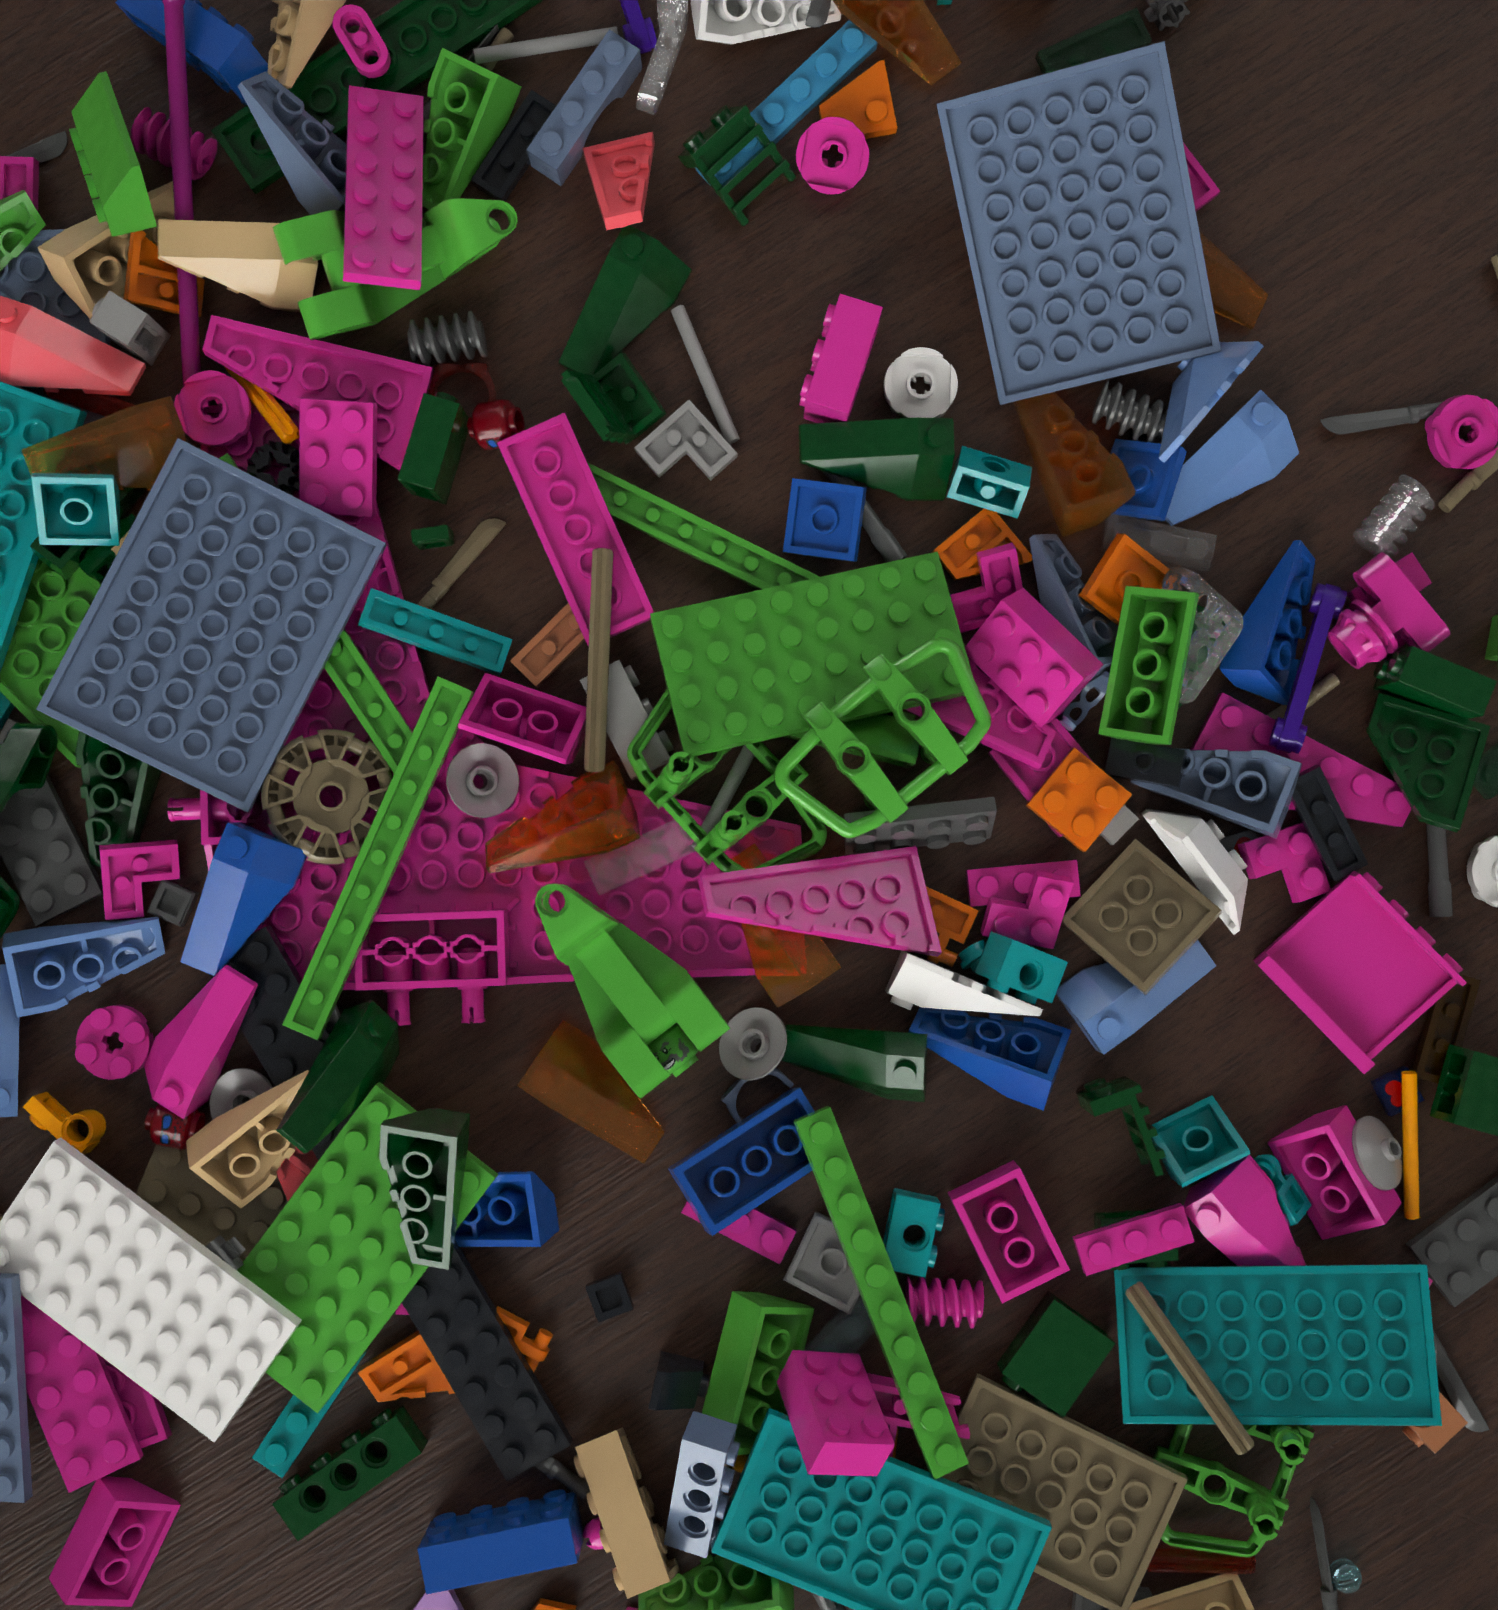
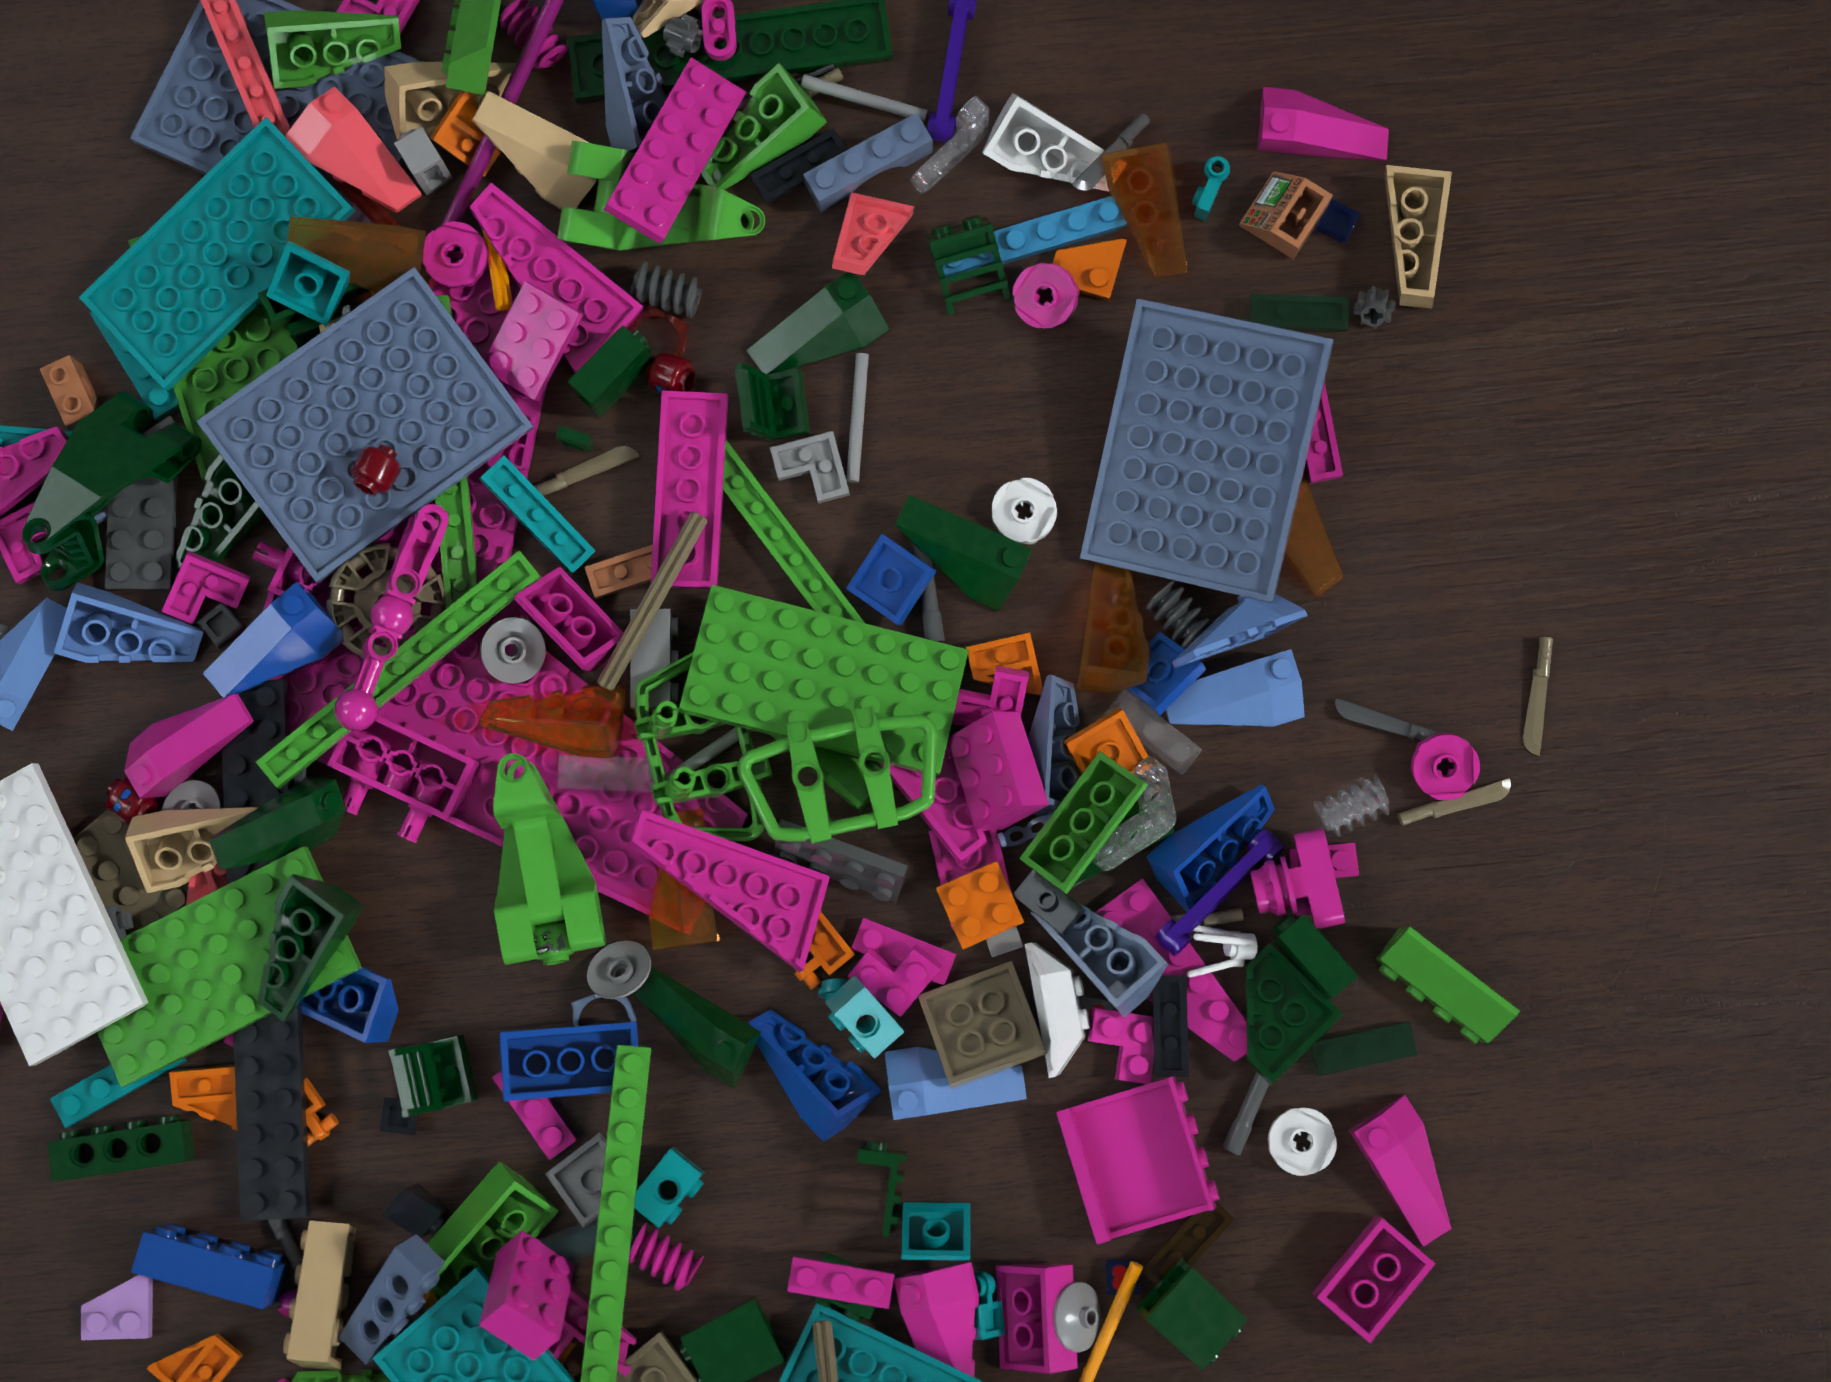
camera: 30 degrees right, 5 degrees down
(52, 1116) = (37, 744): light orange plate -> none
(94, 1050) = (98, 710): dark pink plate -> none
(248, 667) = (375, 470): none -> dark red head
(285, 456) = (491, 318): black gear -> none
(329, 66) = (683, 35): none -> dark grey gear
(343, 804) = (392, 614): none -> dark pink piece
(586, 1088) = (467, 936): clear orange wedge -> none
(623, 1243) = (433, 1076): none -> dark green plate
(840, 360) = (966, 461): dark pink brick -> none
(936, 987) = (787, 997): white wedge -> none
(989, 482) = (1037, 615): teal brick -> none
(1008, 1231) = (744, 1226): dark pink brick -> none
(1346, 713) = (1235, 944): none -> white plant

